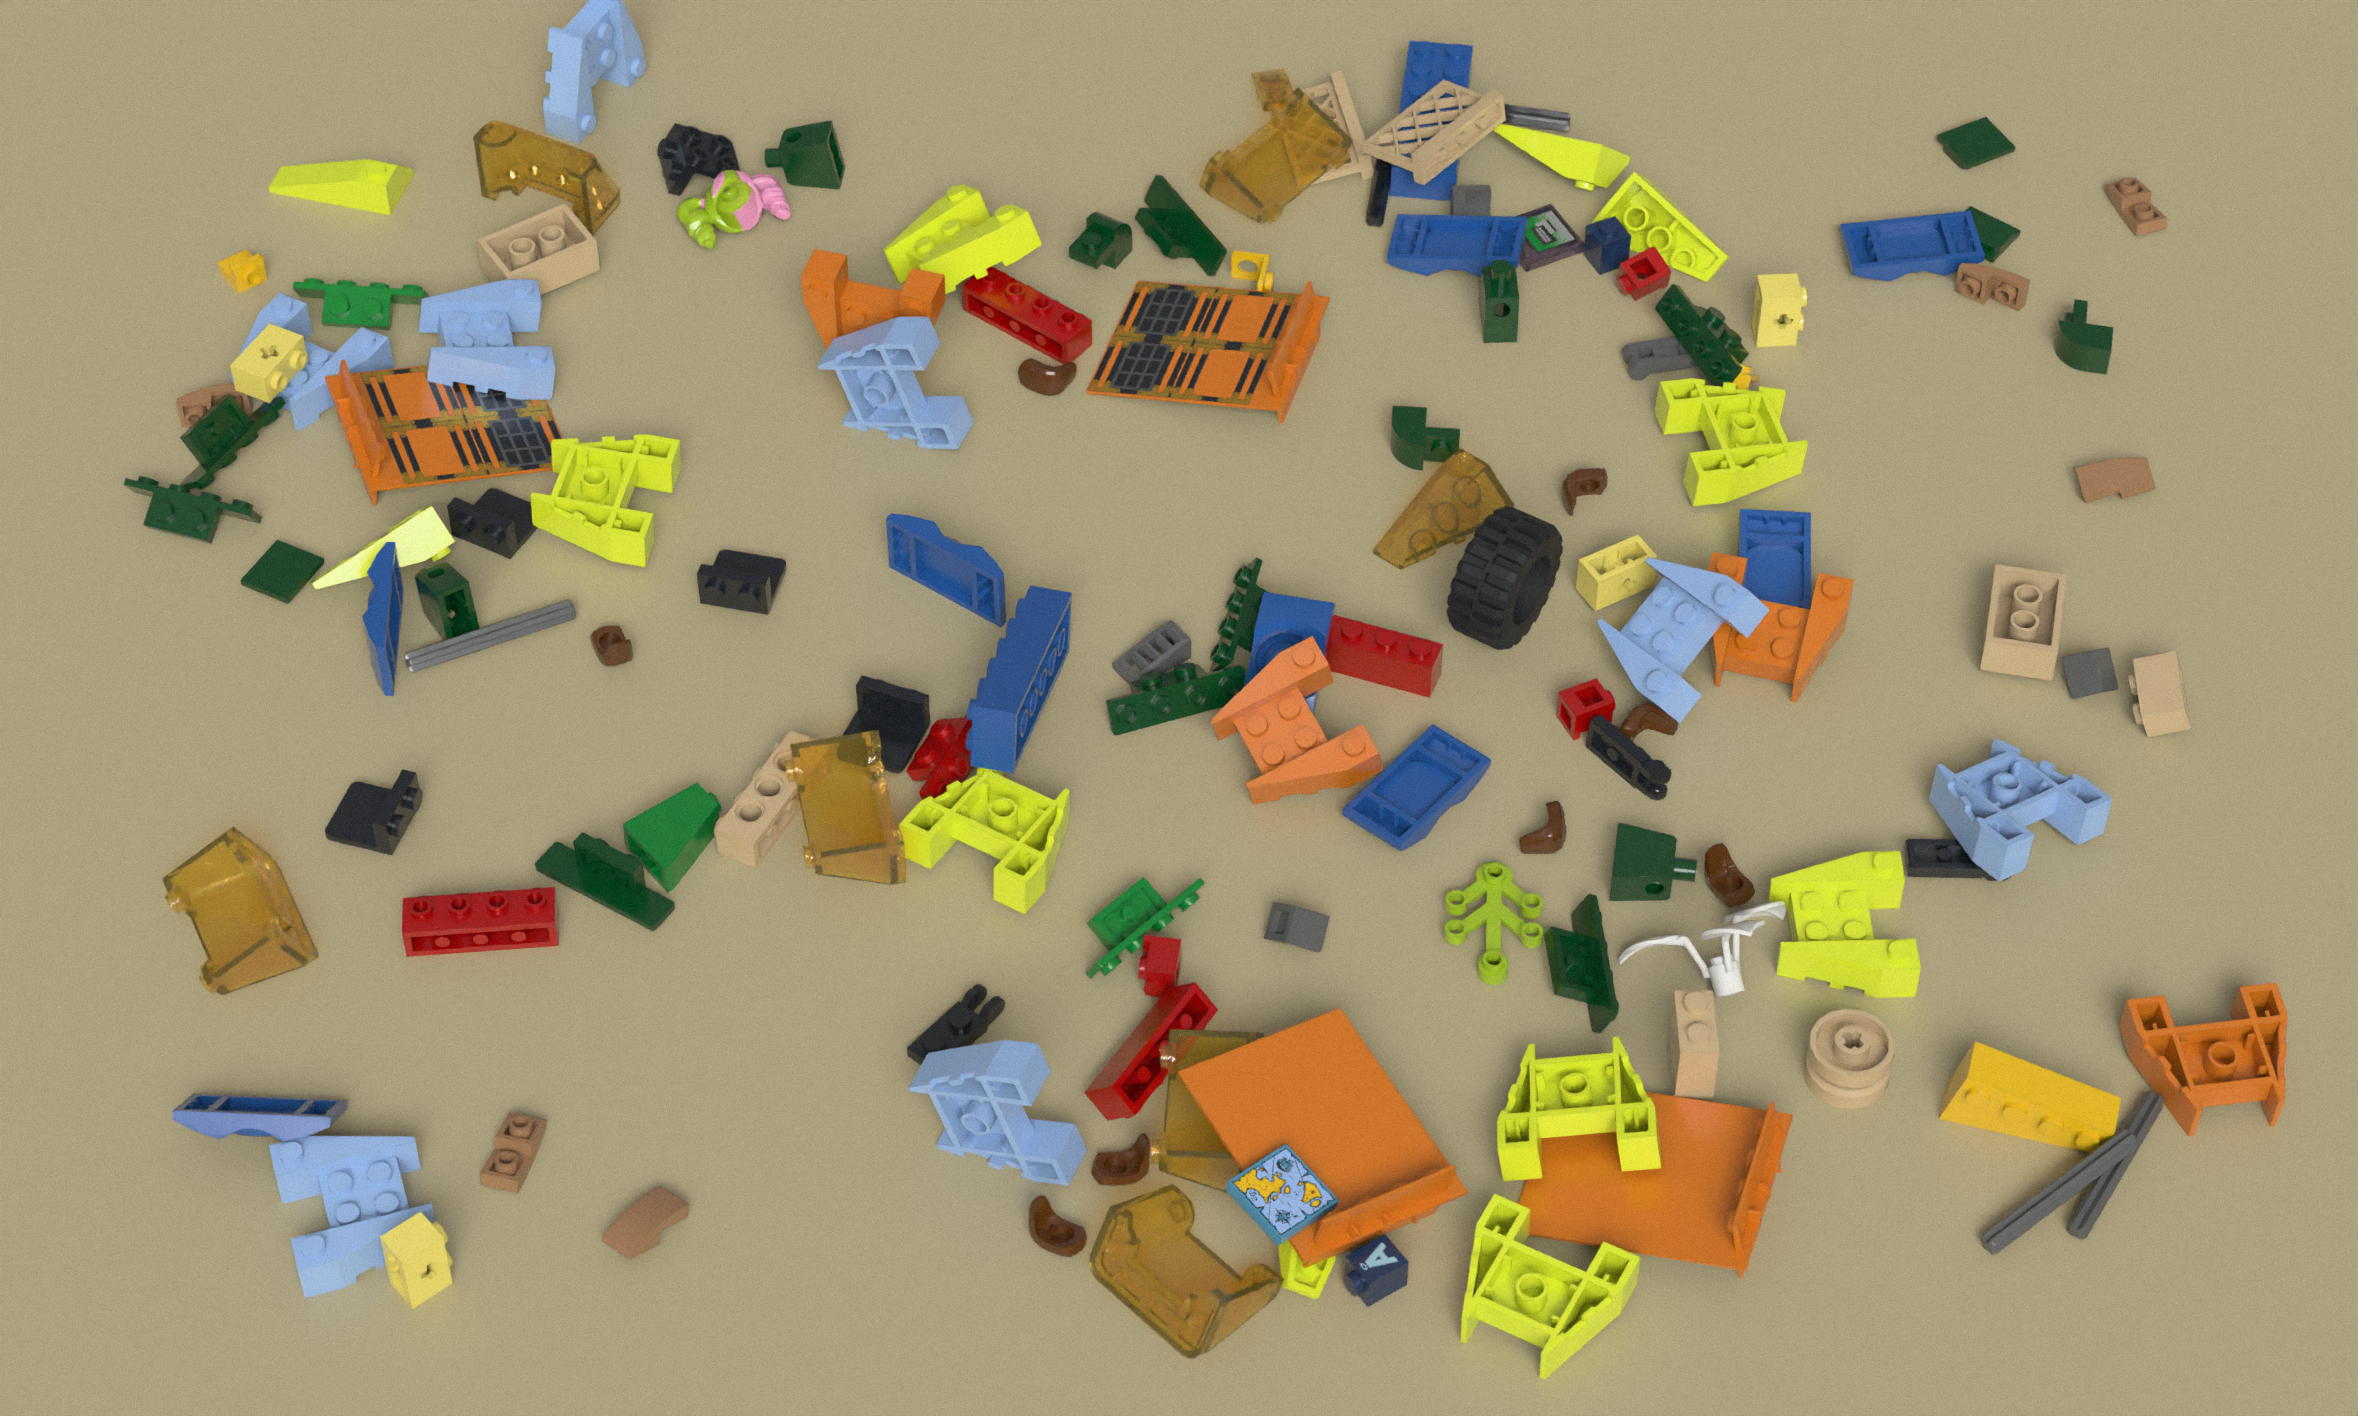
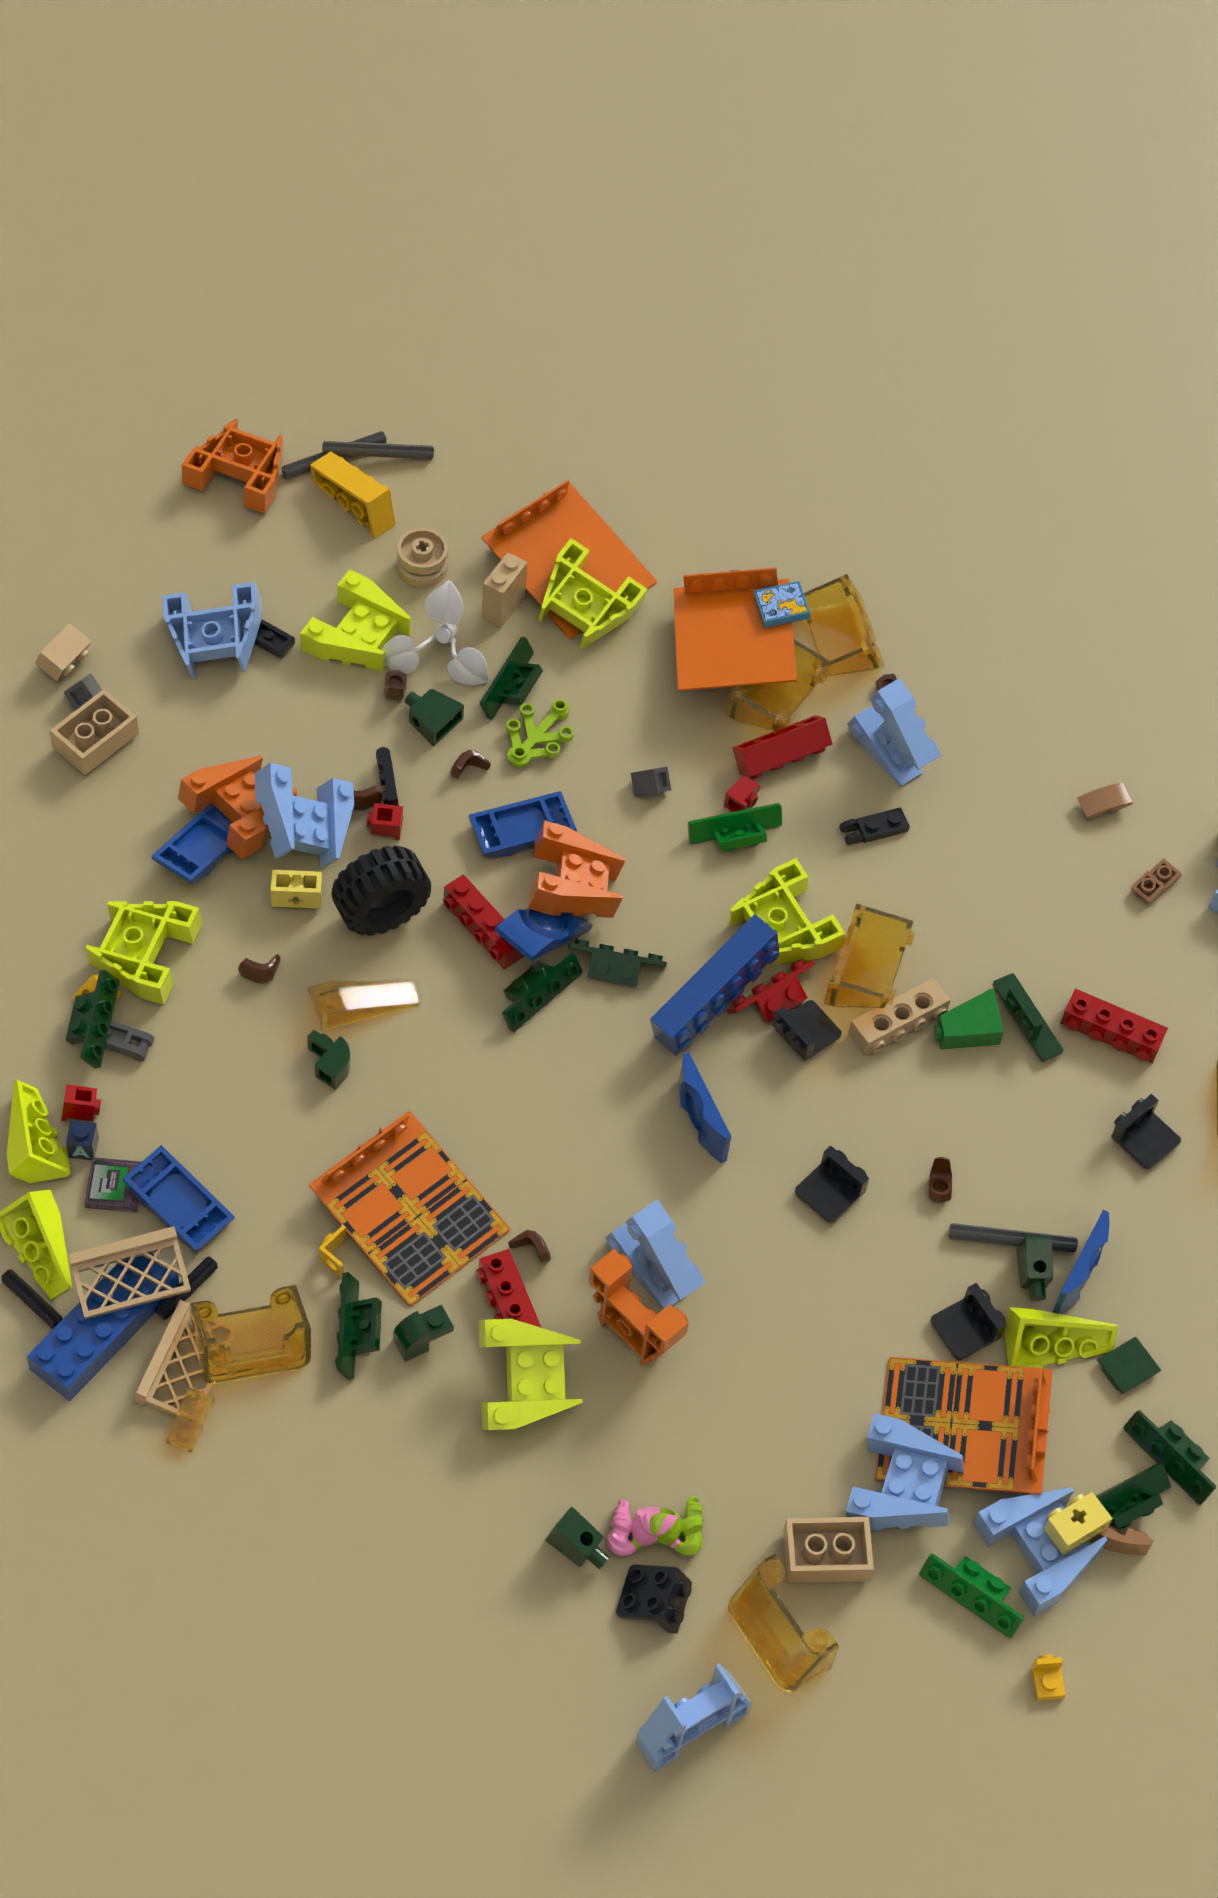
camera: 155 degrees left, 10 degrees up
(351, 184) = (925, 1729): neon yellow wedge -> none
(595, 490) = (891, 1298): neon yellow wedge -> none
(1124, 1166) = (834, 705): reddish brown hair -> none
(1167, 638) = (600, 1005): dark grey slope -> none
(1470, 200) = (141, 1225): dark grey panel -> none
(1499, 286) = (199, 1126): dark green torso -> none
(1539, 1294) = (678, 527): neon yellow wedge -> none
(1778, 310) = (29, 1013): light yellow brick -> none

